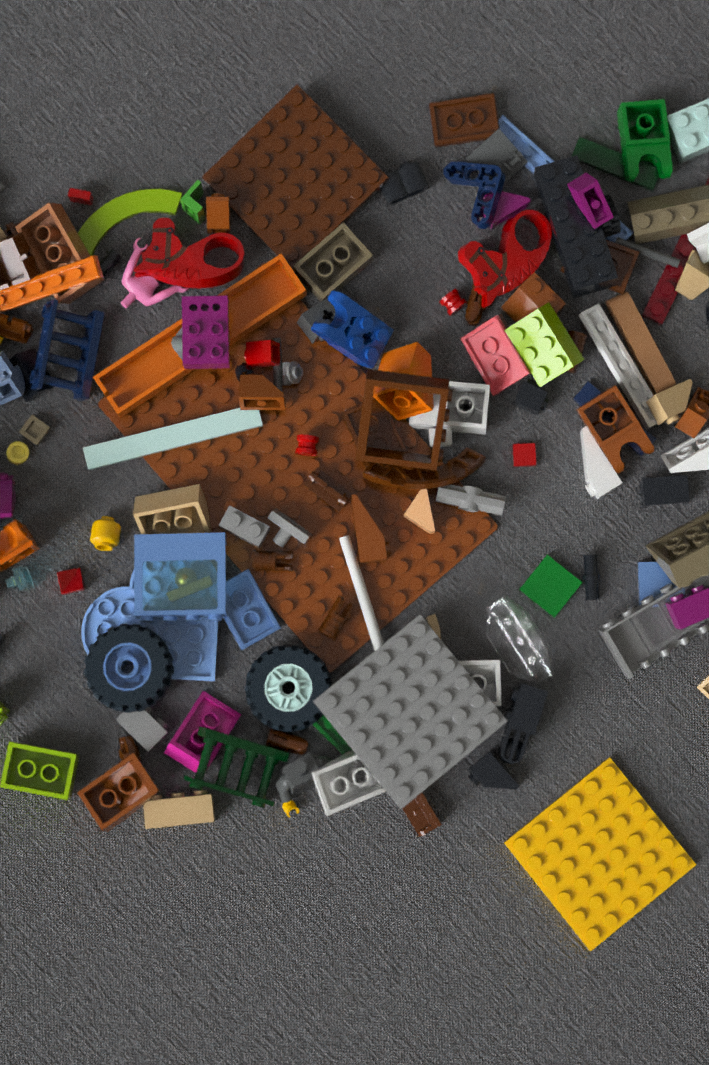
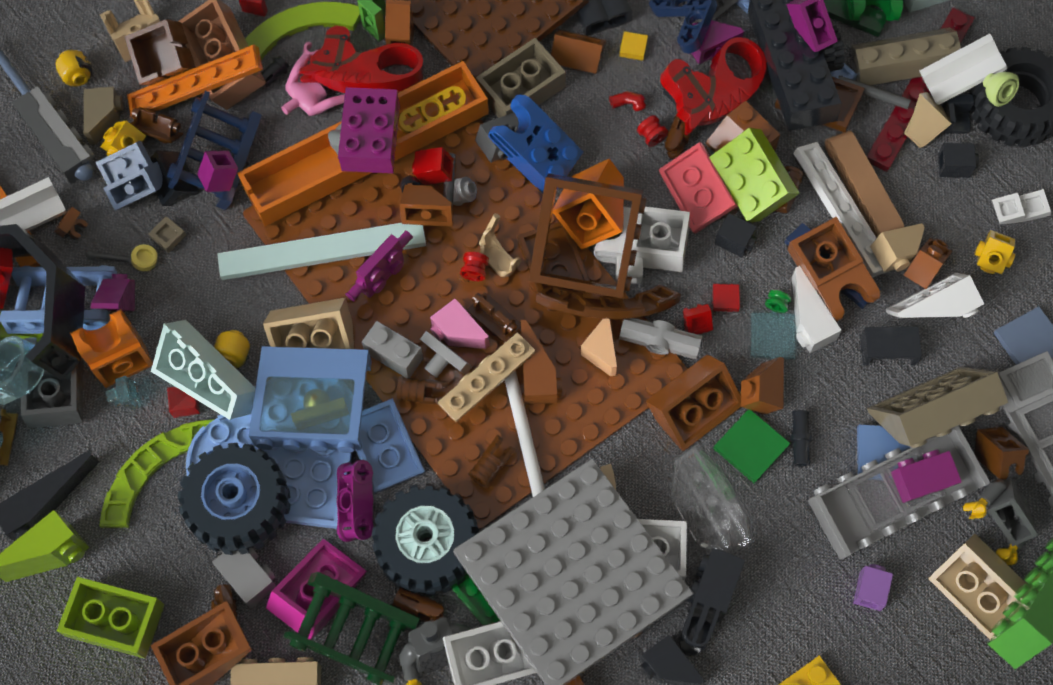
camera: 10 degrees right, 15 degrees down
(44, 638) = (140, 467): none -> lime tile
(75, 376) = (217, 171): none -> magenta brick
(86, 559) = (201, 371): none -> light aqua wedge
(226, 659) = (354, 501): none -> magenta piece
(232, 448) = (380, 266): none -> magenta plate
(267, 286) = (434, 99): none -> yellow beam
(297, 502) = (458, 327): none -> bright pink slope
(321, 428) = (499, 259): none -> tan helmet
(327, 548) = (486, 377): none -> tan bracket
(381, 224) = (577, 51): none -> dark orange panel
(430, 269) = (628, 97): none -> red arm
(431, 215) = (633, 46): none -> yellow tile
(501, 478) = (698, 319): none -> red tile
(502, 552) = (695, 401): none -> dark orange slope
(559, 535) = (764, 387): none -> dark orange slope
(565, 486) = (772, 335): none -> clear light blue piece
(568, 456) = (778, 301): none -> green bush
(652, 699) = (873, 587): none -> medium lavender brick

